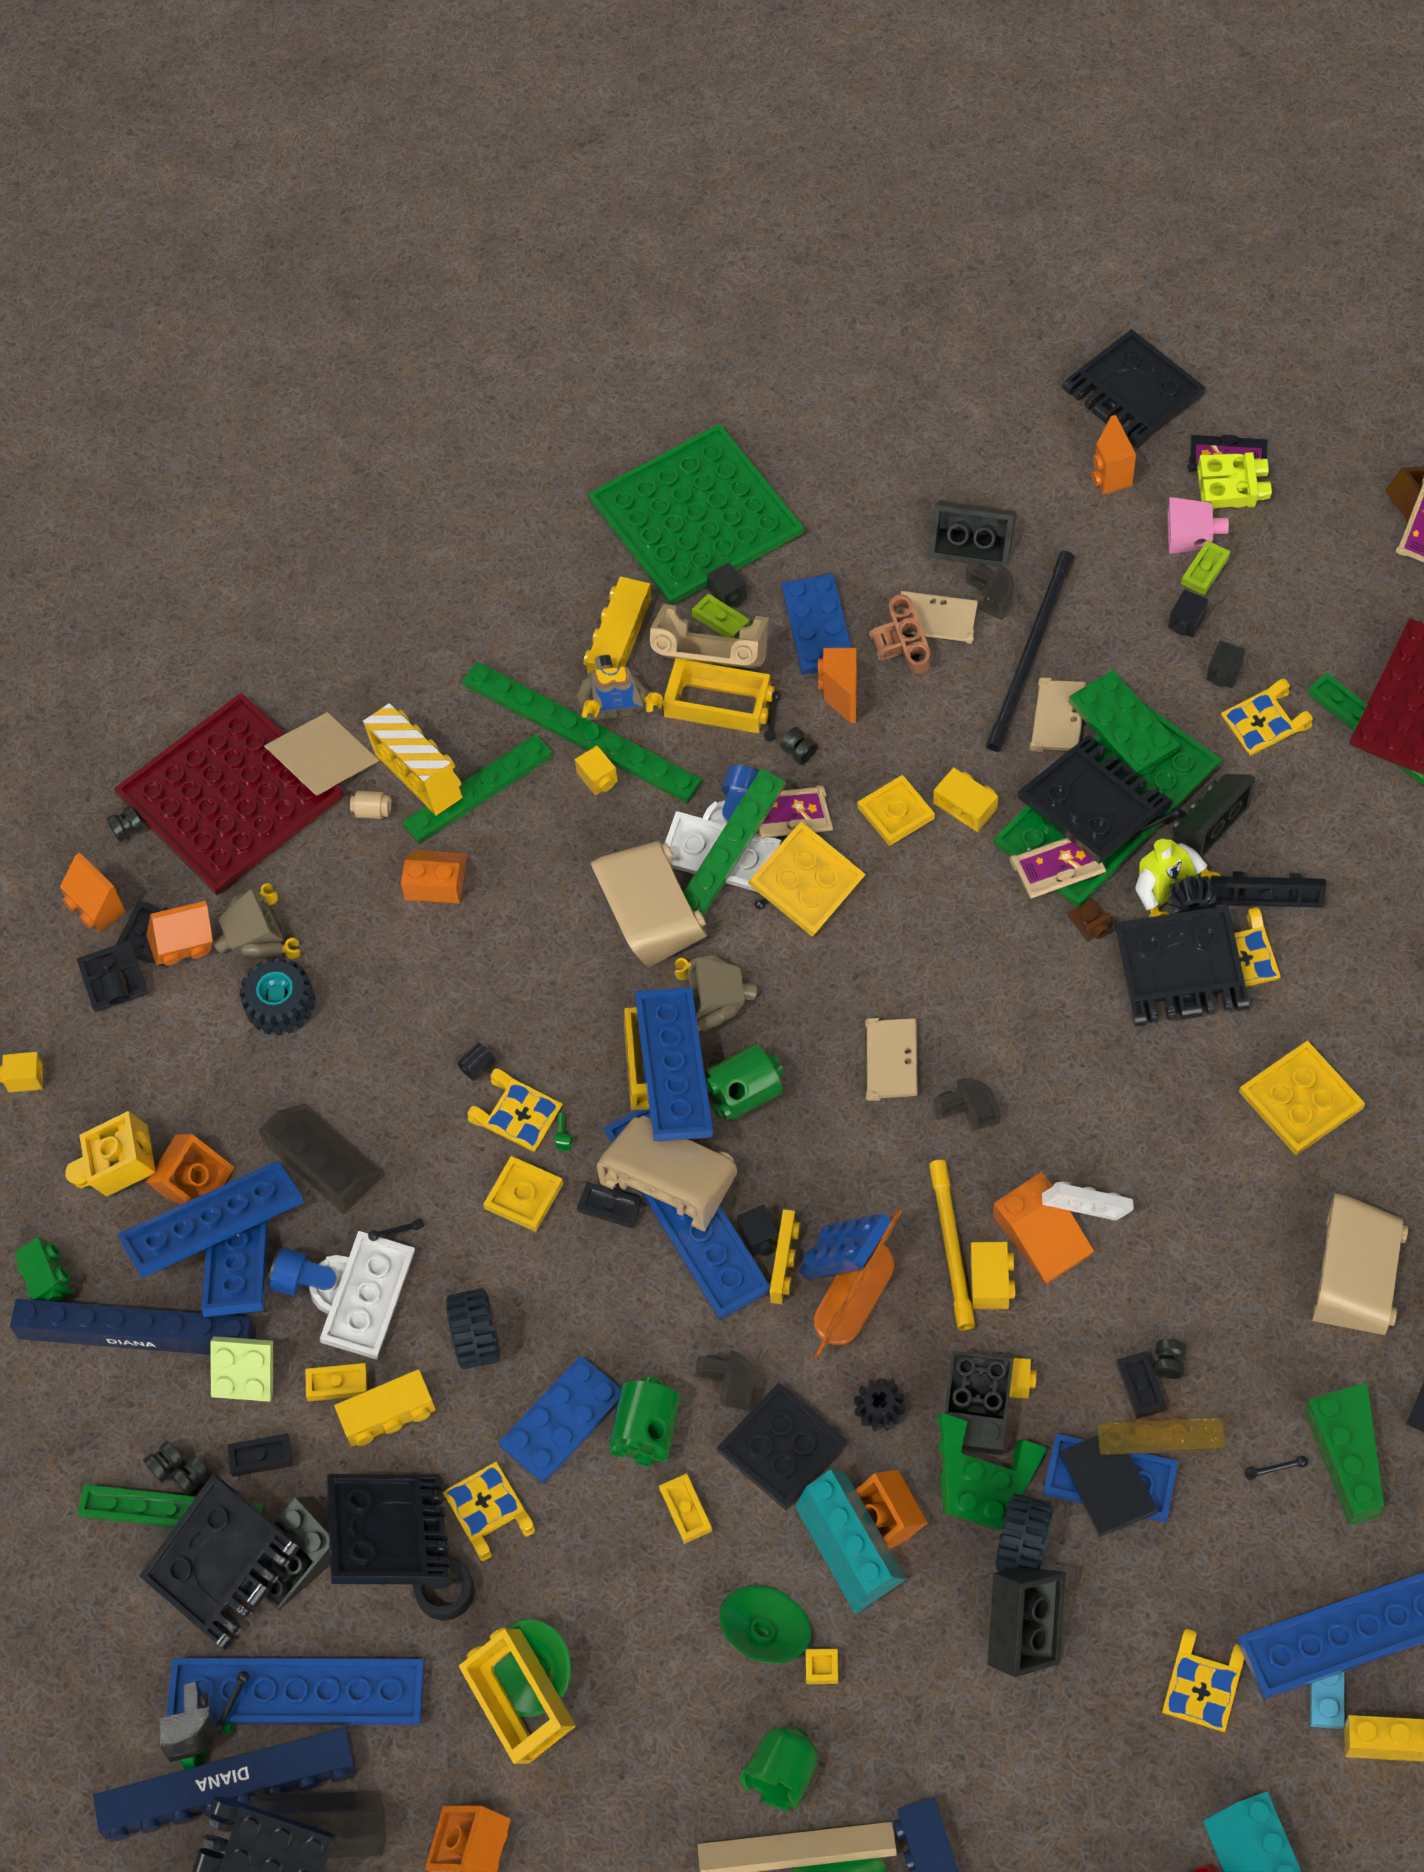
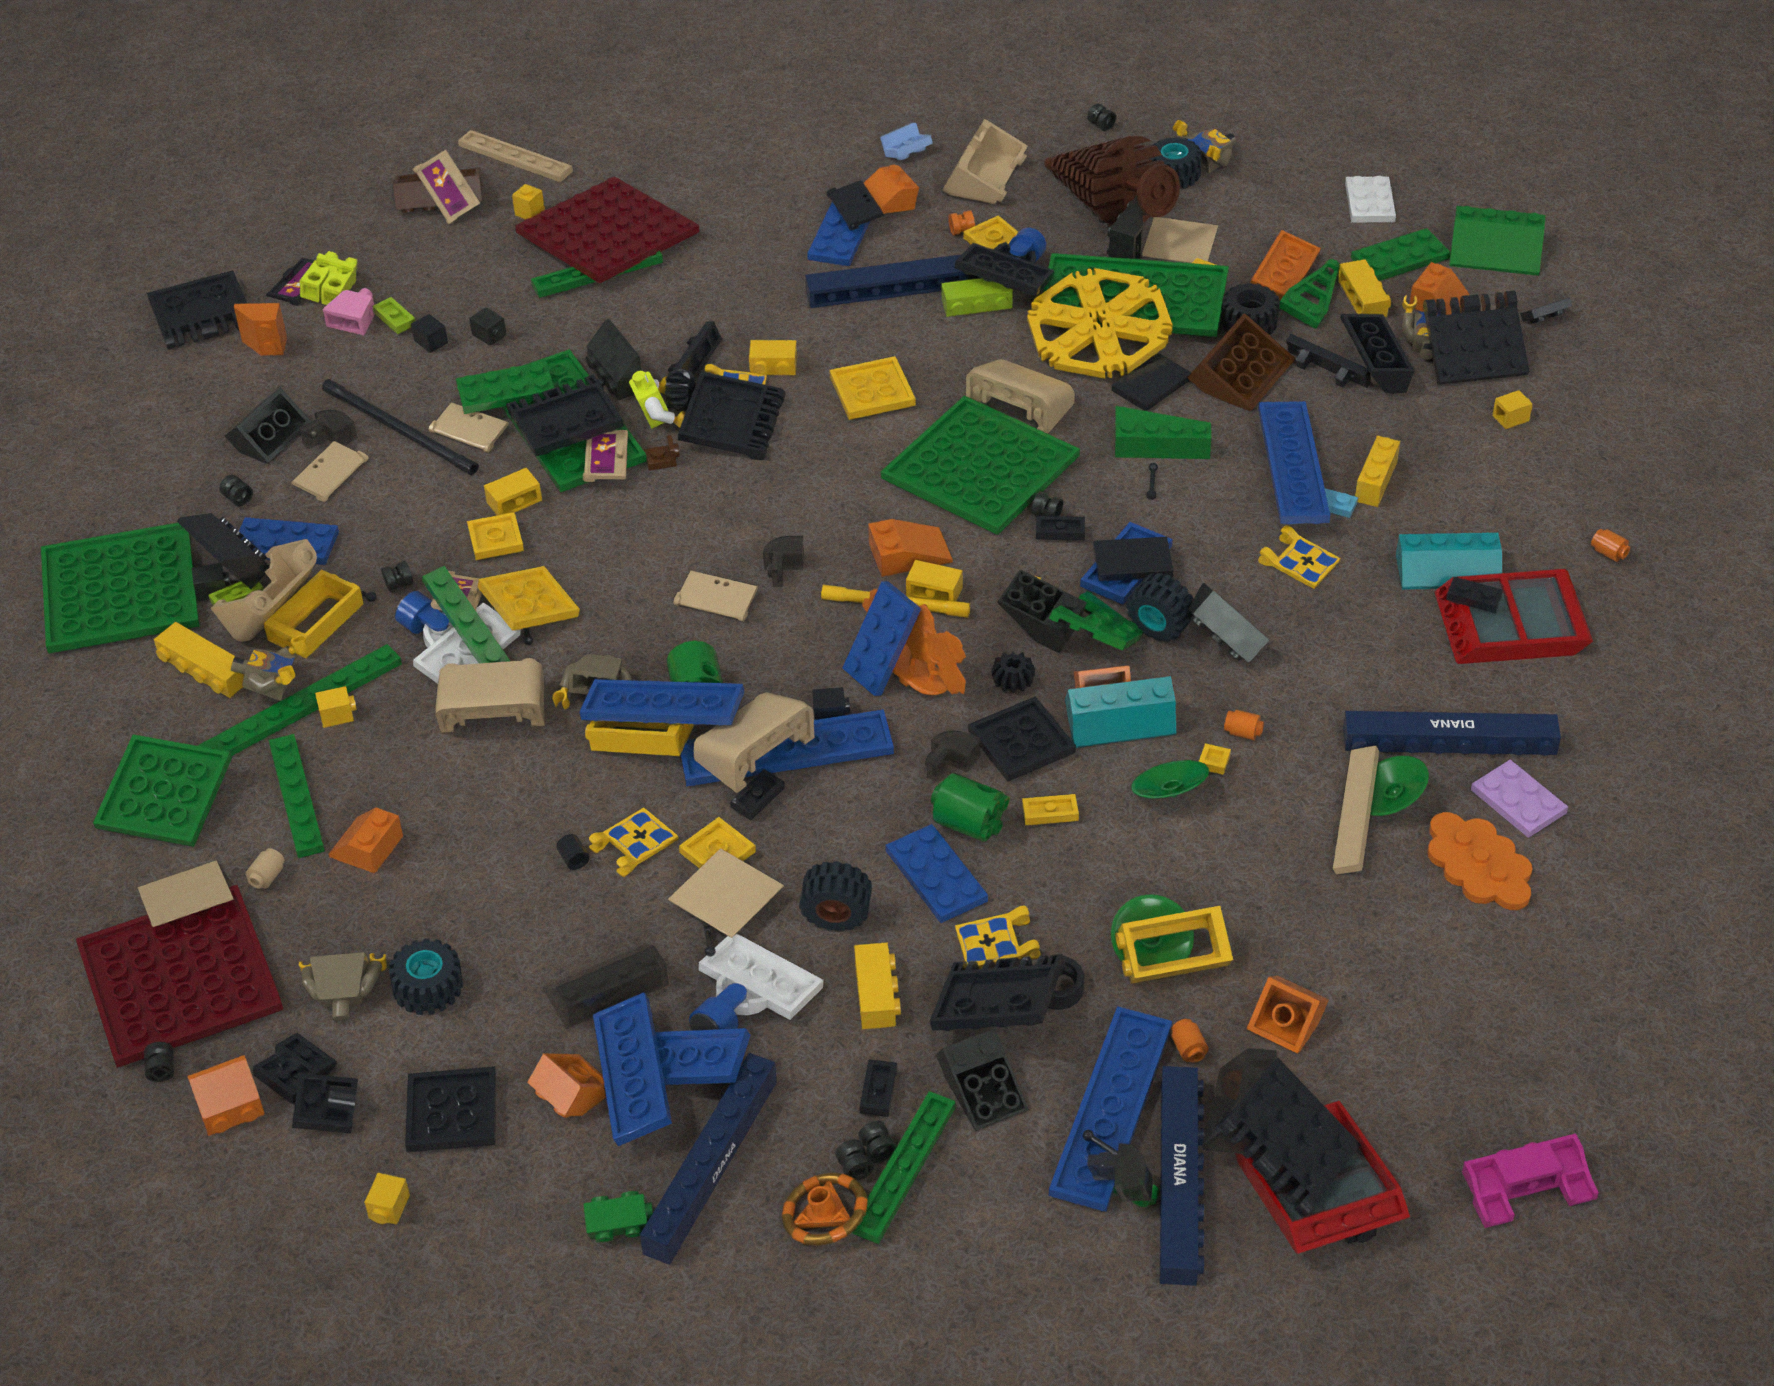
camera: 75 degrees left, 15 degrees down
(101, 1453) = (824, 1209): none -> orange piece
(113, 1155) = (515, 1132): yellow brick -> none
(137, 1079) = (451, 1109): none -> black plate
(180, 933) = (320, 1030): orange slope -> none
(214, 1559) = (970, 1131): black hinge -> none
(242, 1368) = (792, 1076): yellowish green plate -> none
(336, 1382) = (833, 1017): yellow plate -> none
(400, 1748) = (1189, 1041): none -> orange brick
(413, 758) = (246, 814): yellow brick -> none
(438, 673) = (163, 790): none -> green plate
(461, 1223) = (726, 893): none -> tan piece
(562, 1140) = (677, 815): green hand -> none
(761, 574) = (227, 546): none -> black slope
(781, 1767) = (1293, 794): green cylinder -> none
(784, 1257) = (862, 696): yellow plate -> none
(839, 680) = (361, 528): orange slope -> none
(865, 550) = (236, 490): none -> pearl dark grey wheel
(885, 1685) = (1243, 724): none -> orange brick
(896, 642) = (339, 484): nougat beam -> none
(1087, 1201) = (904, 505): white plate -> none
(1160, 1436) = (1110, 518): clear yellow bracket -> none
(1217, 1262) = (980, 464): none -> green plate
(1262, 720) = (546, 326): yellow flag -> none
(1304, 972) = (773, 357): none -> yellow brick

